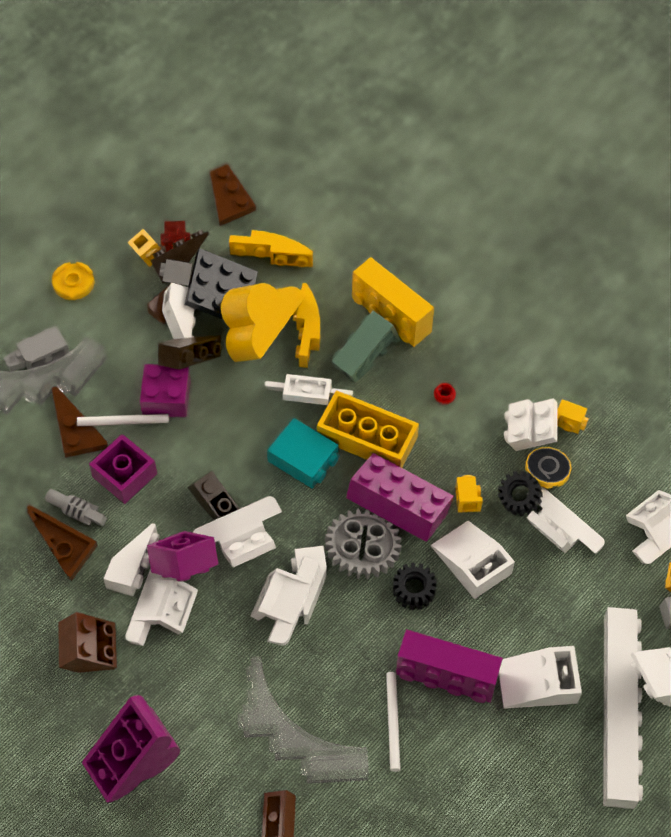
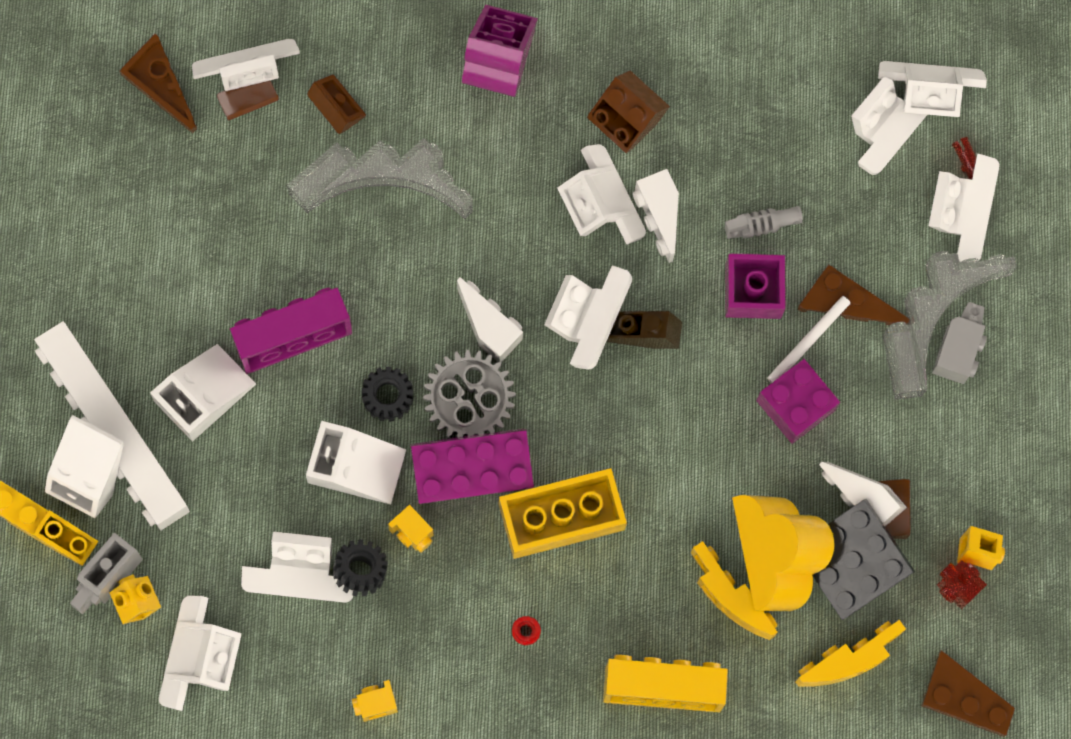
camera: 135 degrees right, 15 degrees up
(66, 544) = (736, 183): reddish brown wing -> none
(73, 280) = (1015, 455): yellow tile -> none
(176, 272) = (909, 527): light grey brick -> none
(181, 251) = (931, 550): dark brown slope -> none
(182, 555) = (614, 238): magenta brick -> none
(188, 351) = (812, 447): dark brown slope -> none
(284, 598) = (491, 279): white plate -> none
(303, 453) = (605, 443): teal brick -> none
(306, 389) = (658, 507): white plate -> none
(364, 346) = (648, 609): sand green wedge -> none
(393, 721) = (304, 254): white bar -> none
(531, 424) = (407, 656): white plate -> none
(548, 466) = (356, 626): black tile -> none

